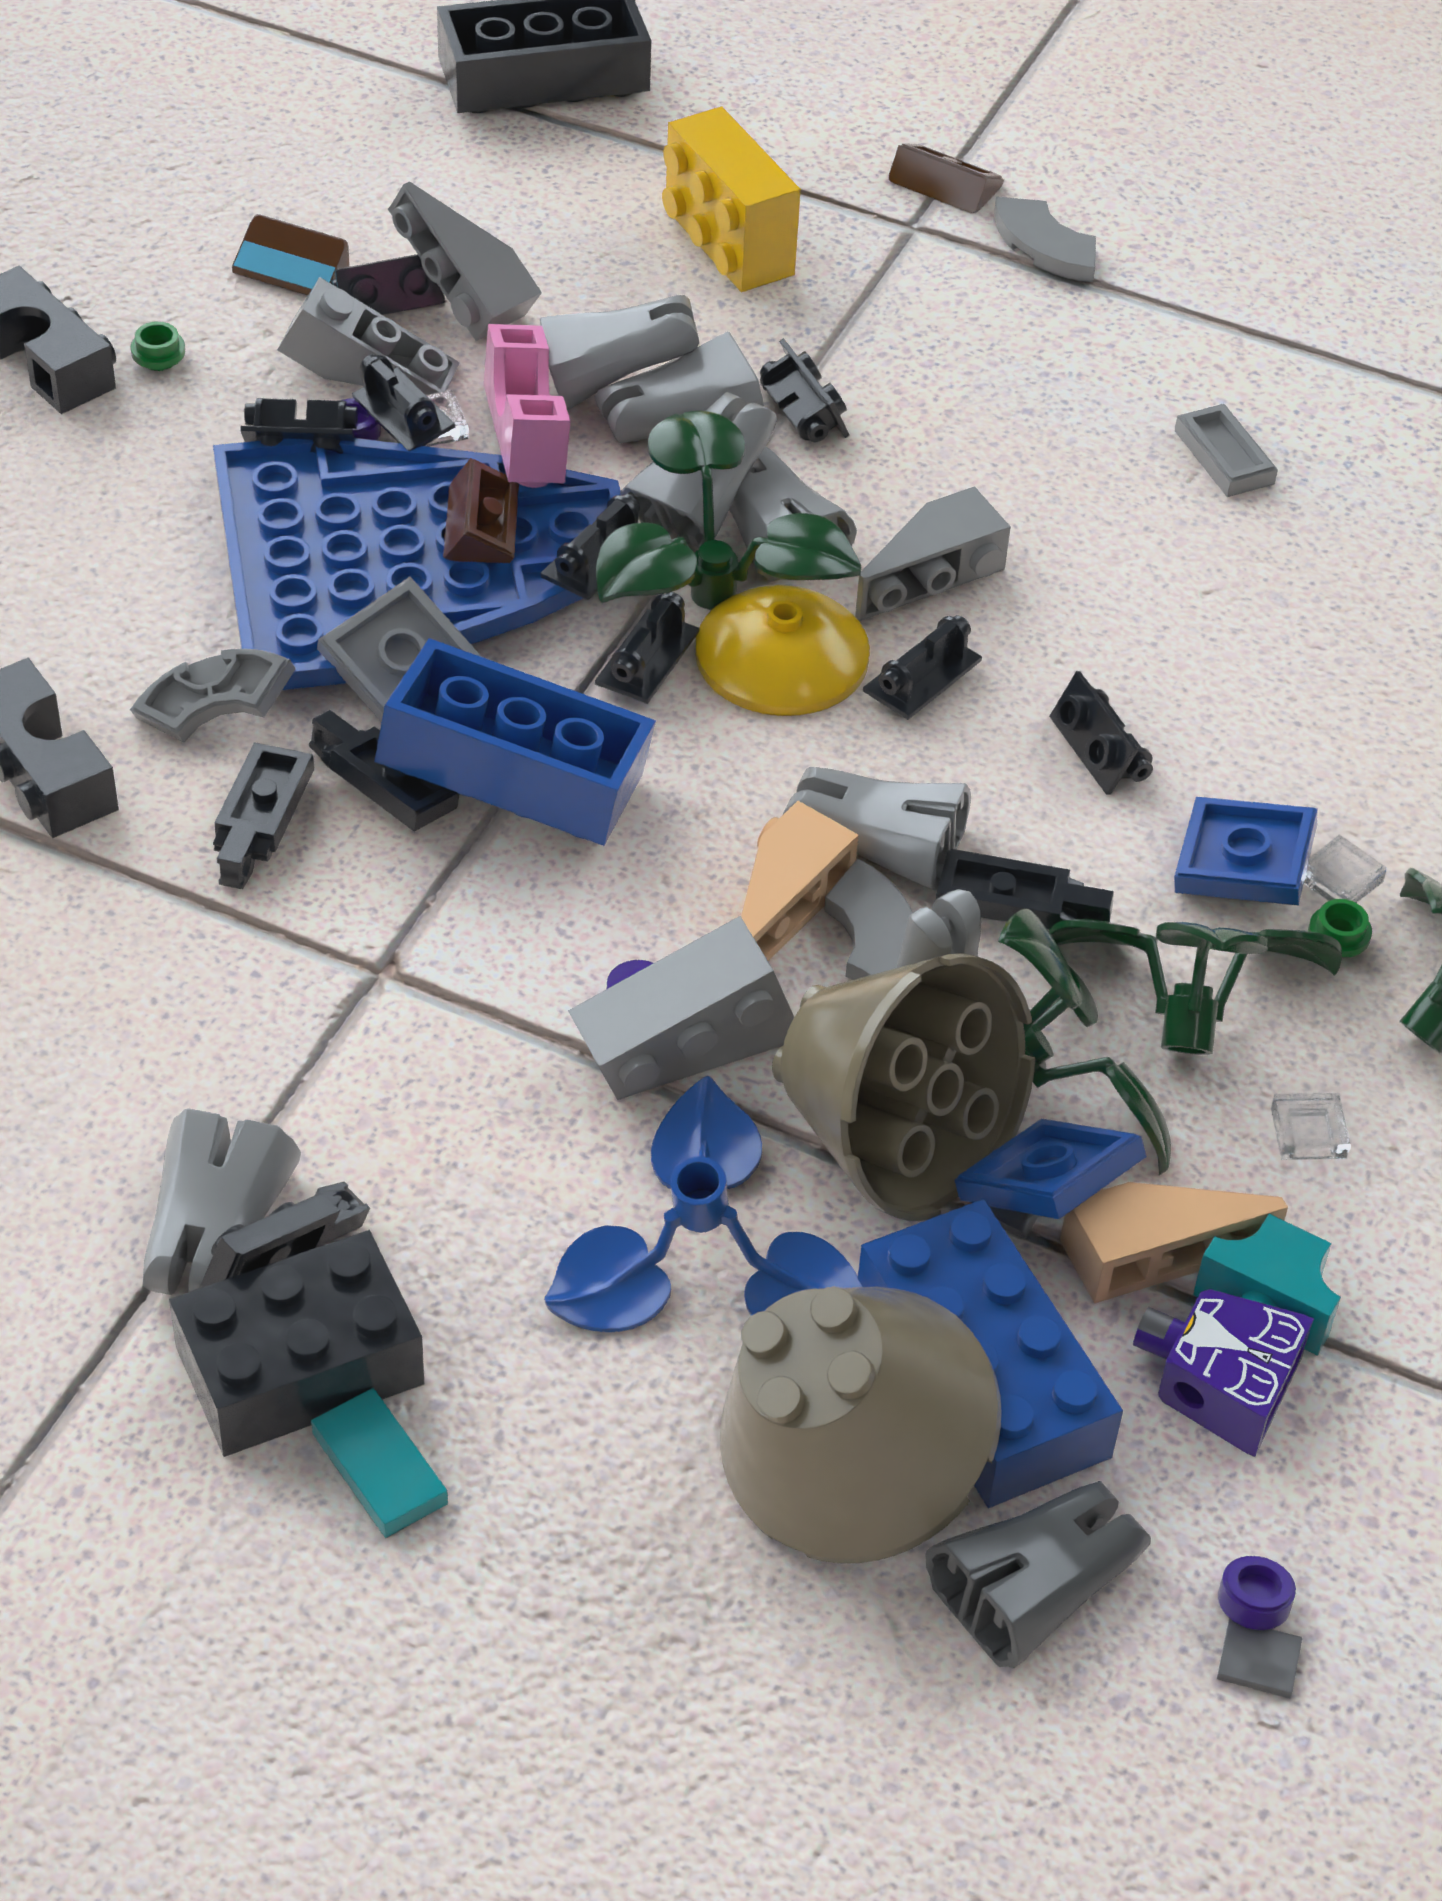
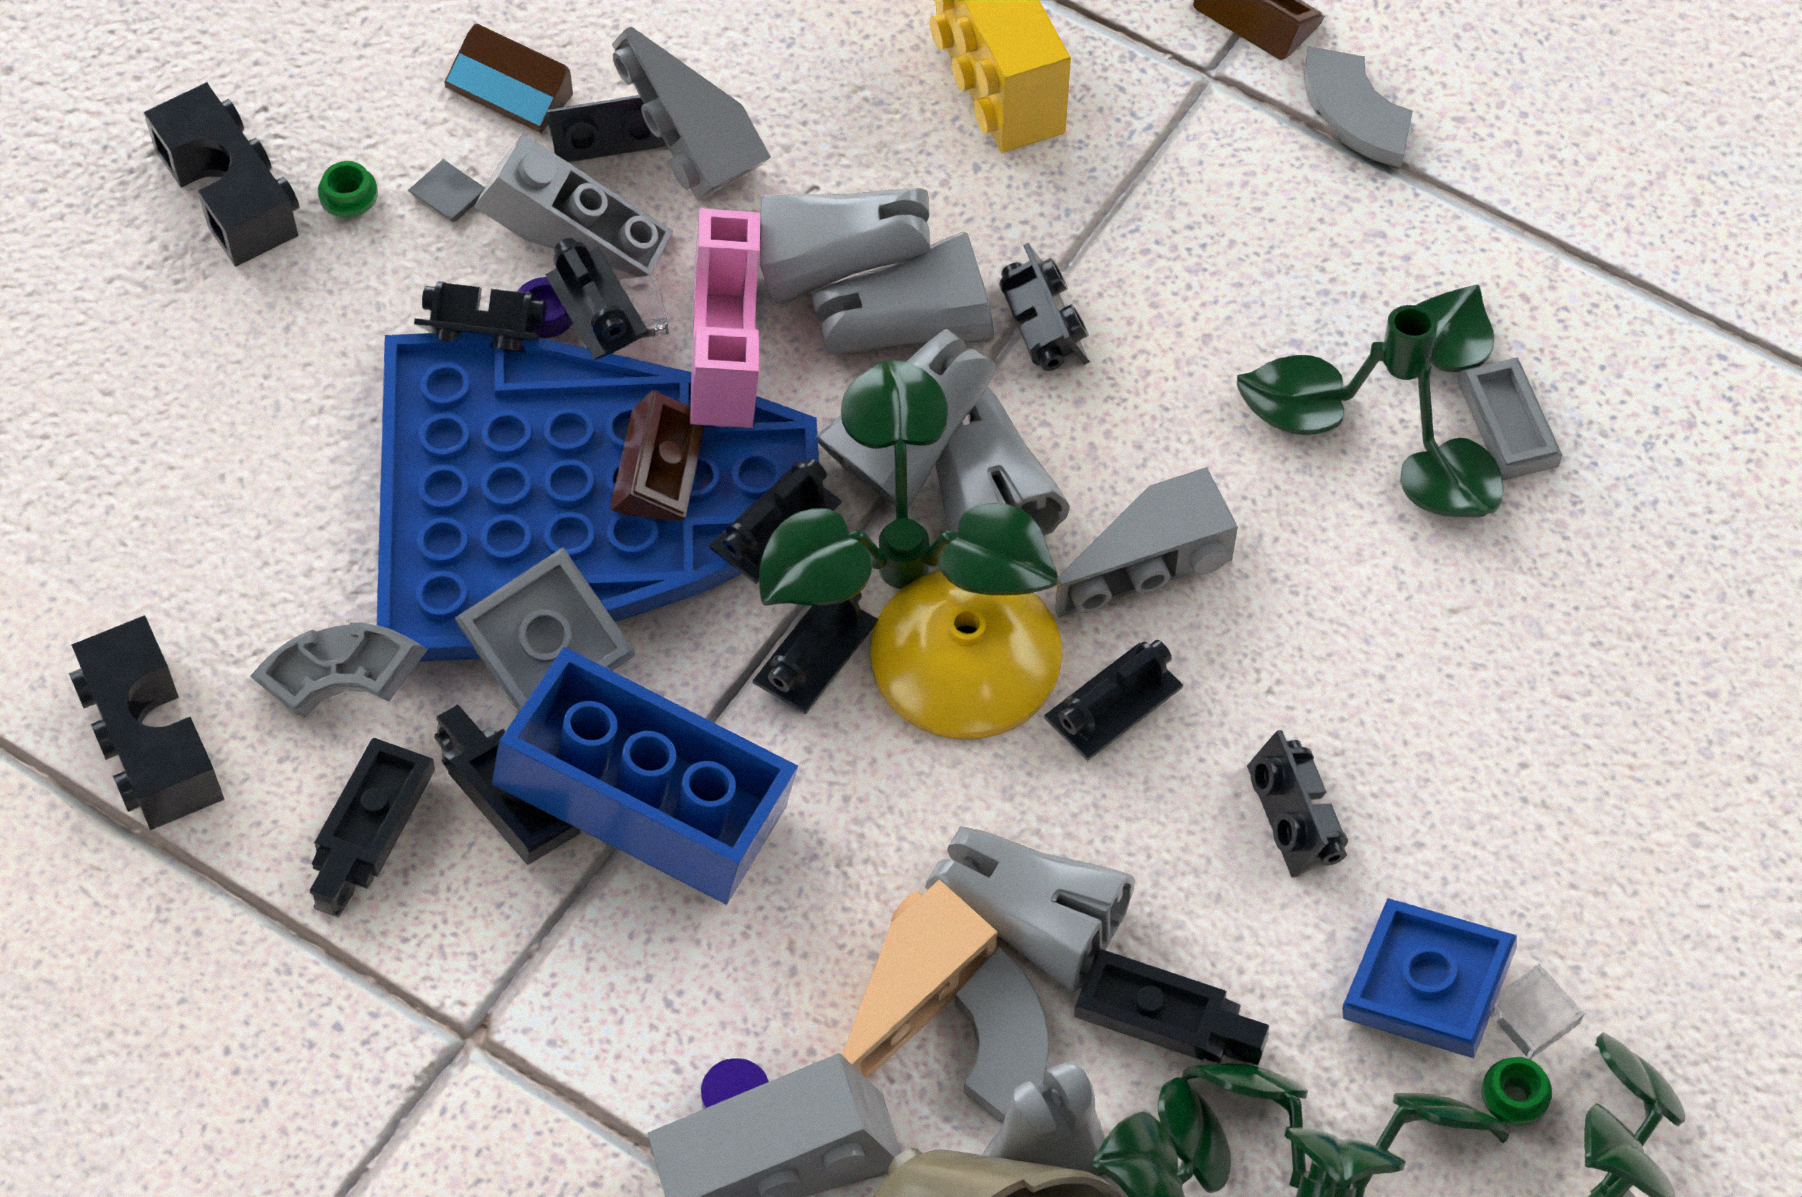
camera: 10 degrees right, 10 degrees up
(248, 346) = (447, 190): none -> flat silver piece
(1137, 386) = (1447, 331): none -> dark green plant

